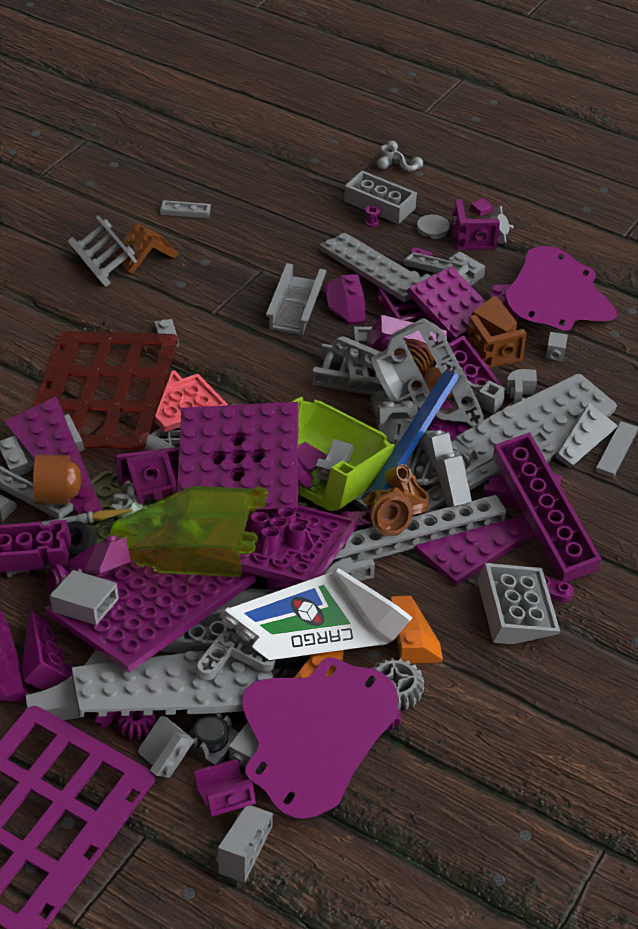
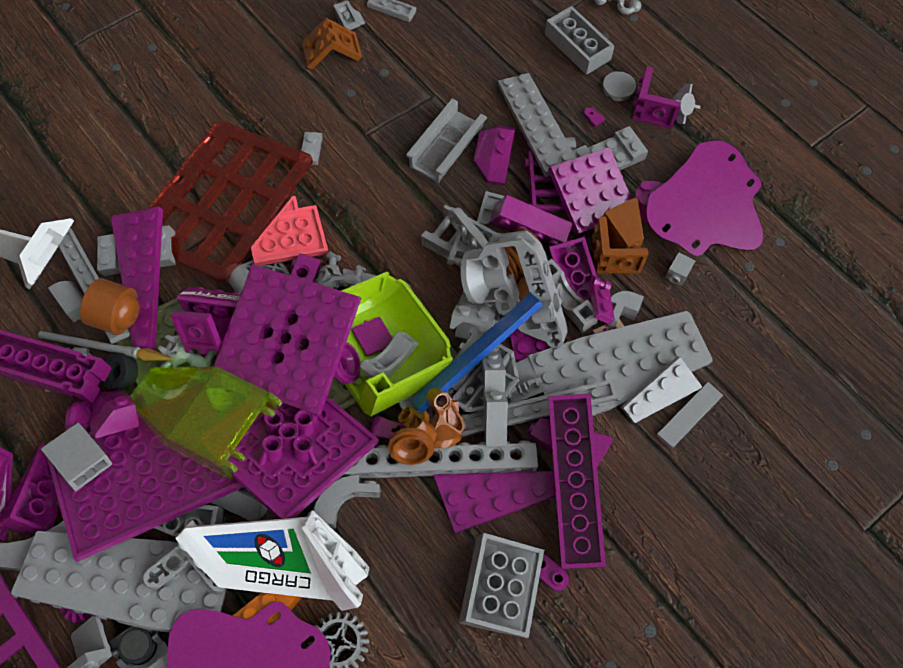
camera: 20 degrees right, 20 degrees up
(87, 255) = (274, 40): light grey fence -> none
(147, 221) = (347, 15): none -> light grey slope
(372, 216) = (561, 60): magenta bush -> none
(417, 639) = (386, 585): orange wedge -> none
(433, 264) = (599, 135): light grey tile -> none
(481, 207) = (678, 74): magenta tile -> none
(500, 377) = (601, 300): none -> magenta plate

